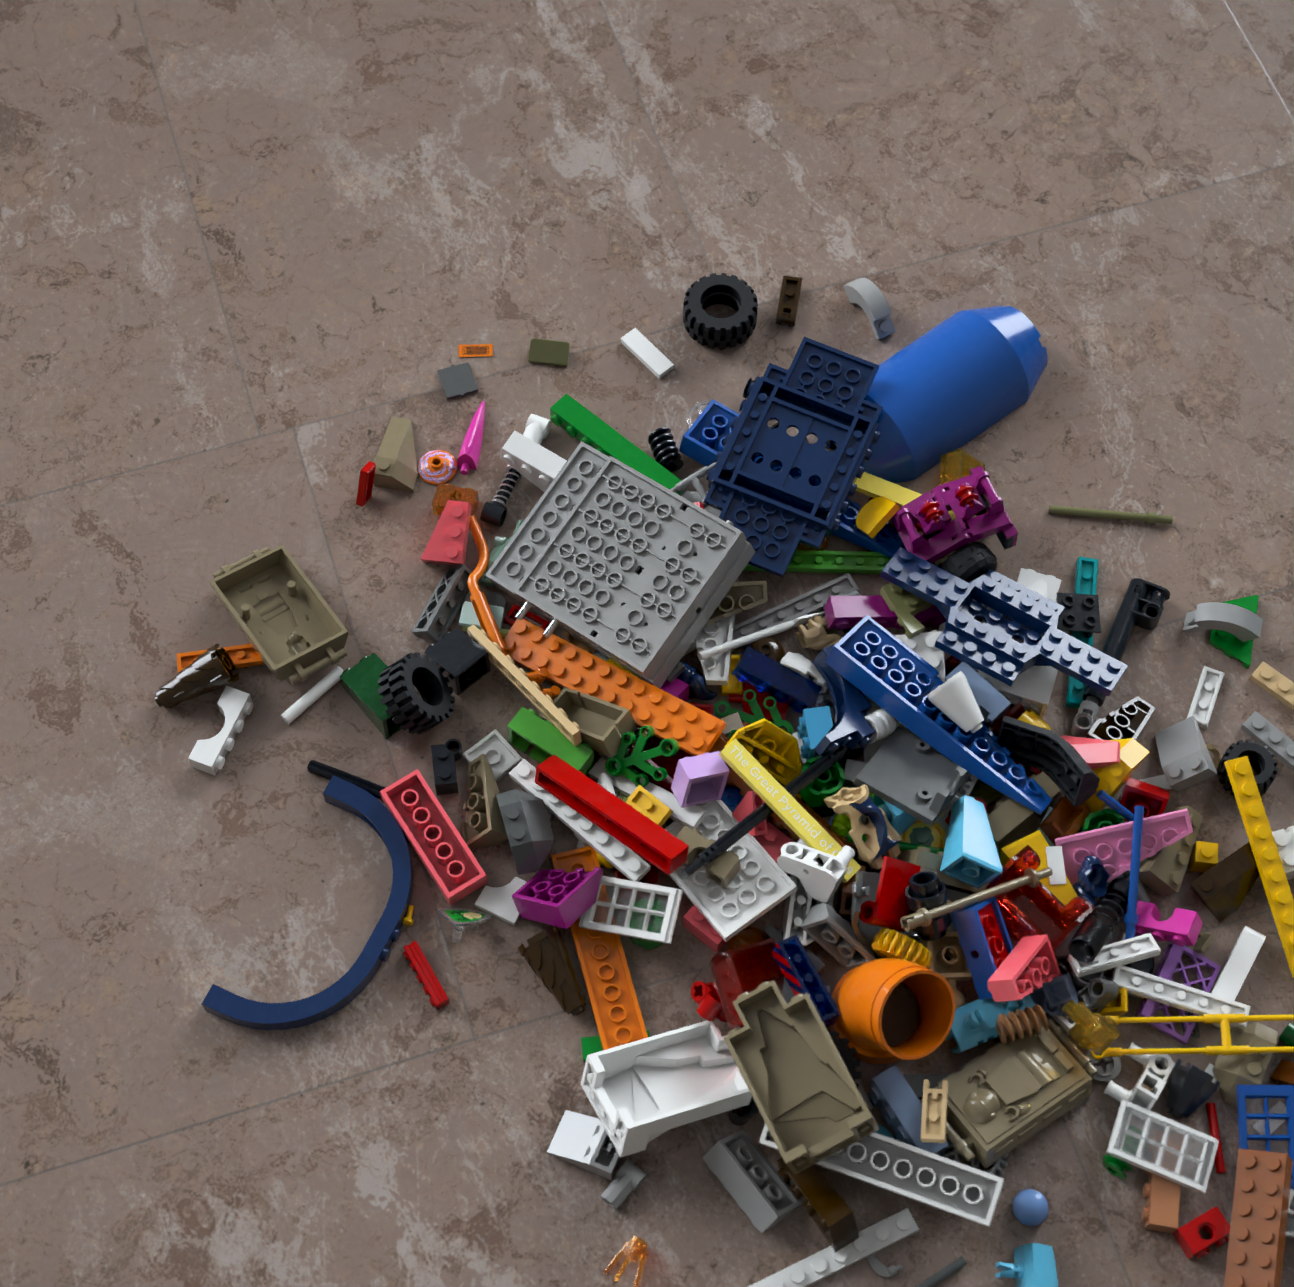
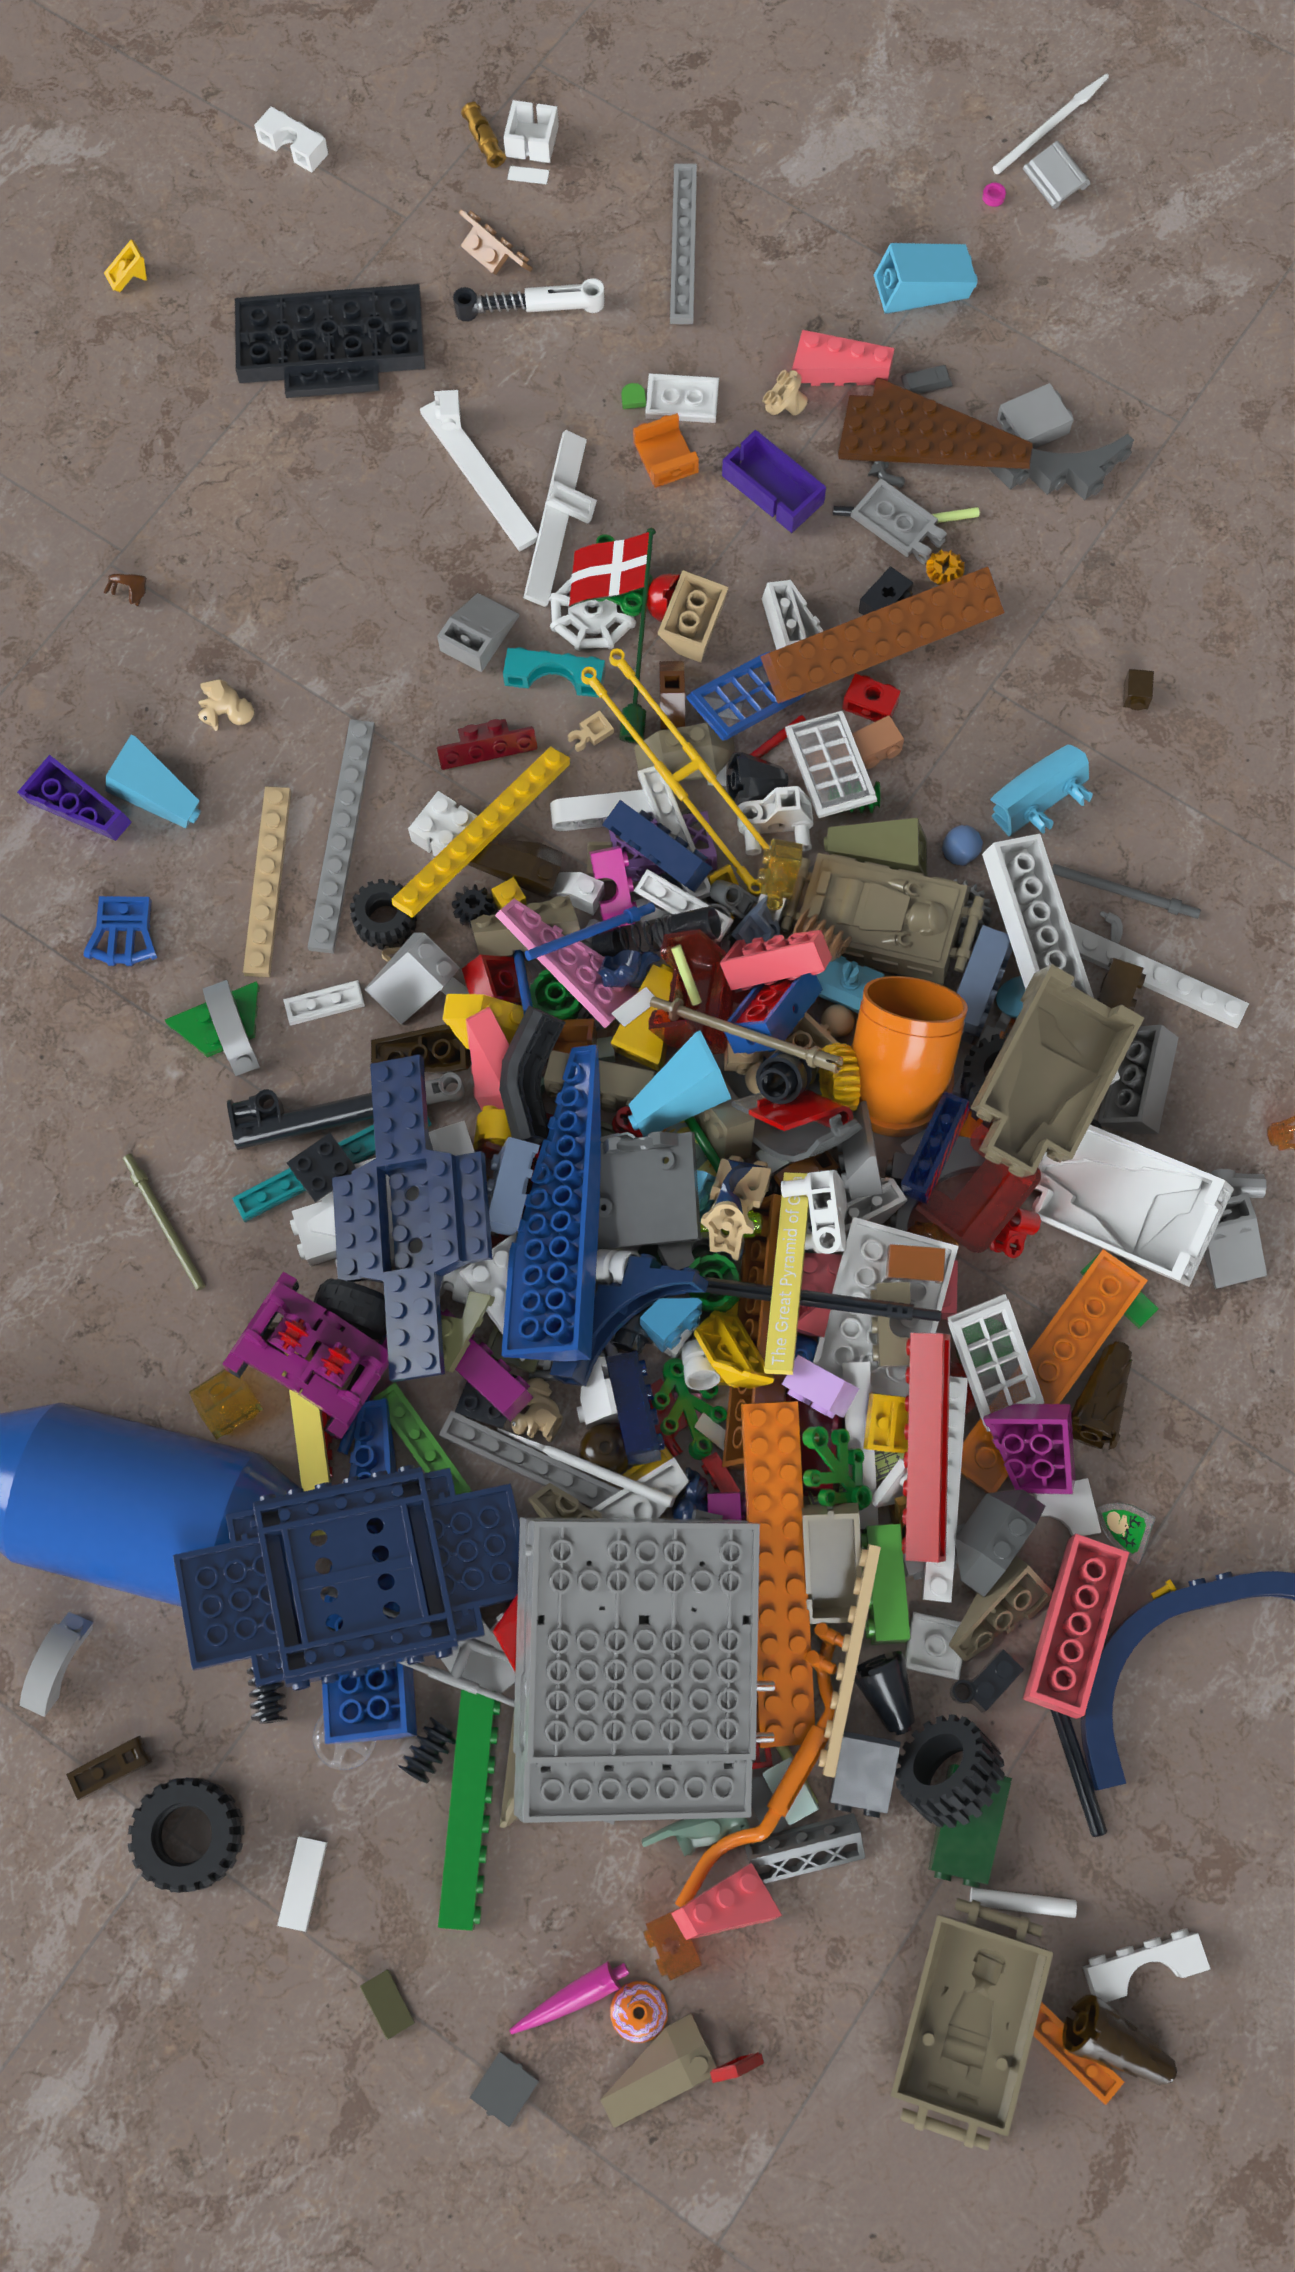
camera: 125 degrees left, 10 degrees up
(425, 975) = (1207, 1522): red piece -> none
(475, 350) = (445, 2105): sticker -> none
(491, 705) = (887, 1690): none -> black cone
(495, 510) = (573, 1909): piece -> none
(532, 460) = (565, 1884): white wedge -> none
(733, 896) = (915, 1263): none -> dark orange panel
(875, 515) = (358, 1444): yellow tile -> none
(934, 1113) = (969, 949): tan hinge -> none
(958, 703) = (544, 1192): white cone -> none
(1054, 909) = (686, 975): none -> yellowish green piece
(1060, 1142) = (887, 843): none -> olive slope
(1174, 965) = (658, 846): none -> dark blue wedge
(1183, 900) = (582, 889): none -> white slope
(1223, 830) = (464, 903): none -> black gear

